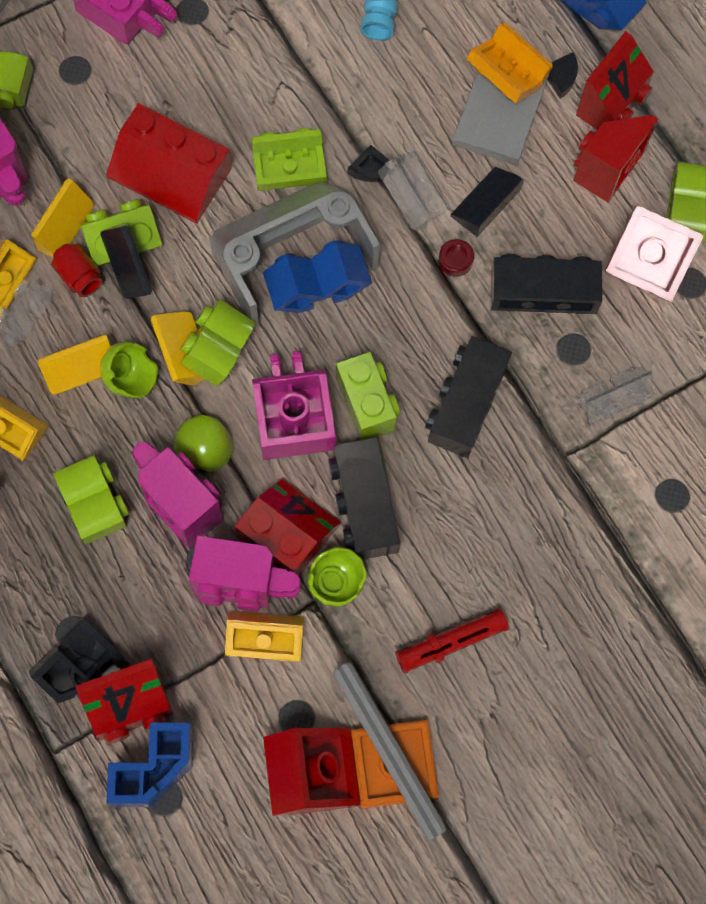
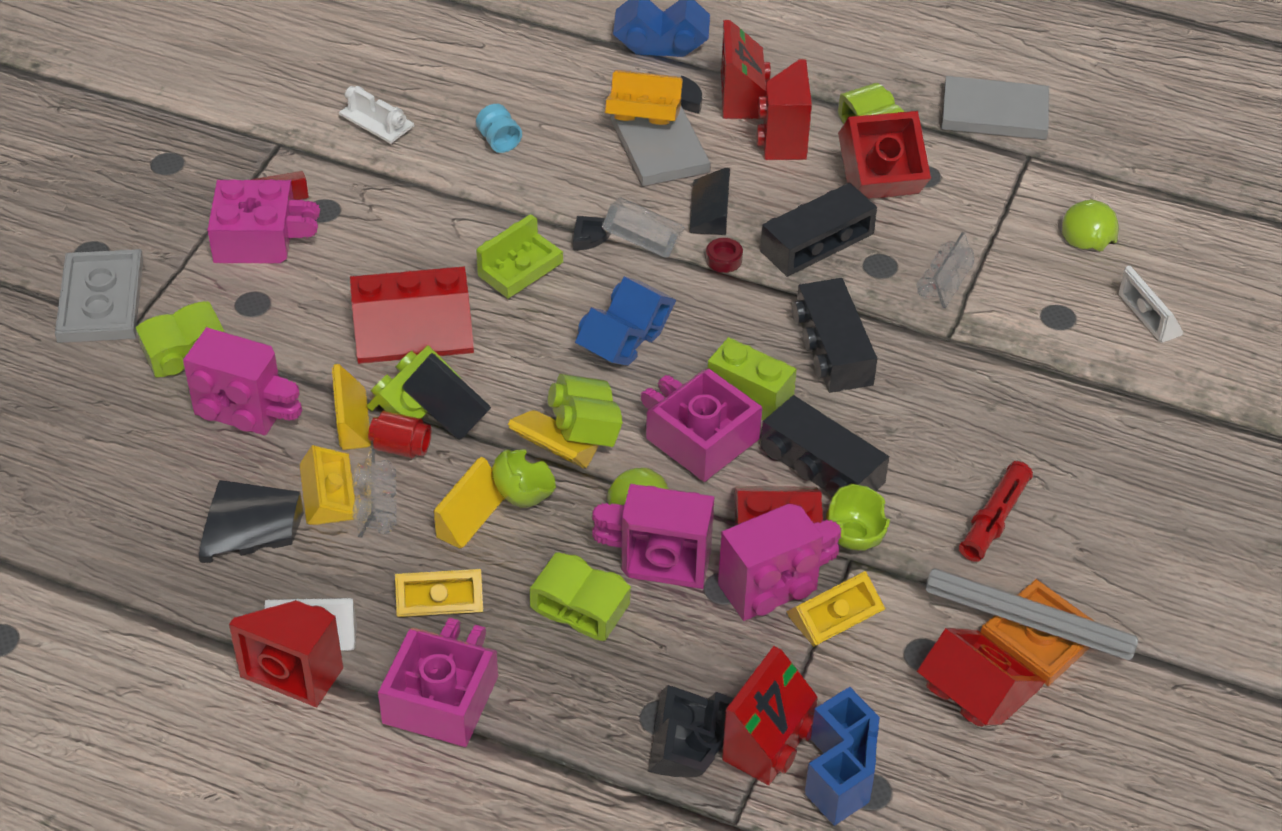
camera: 35 degrees left, 25 degrees down
(239, 243) = (541, 332): light grey windscreen -> none

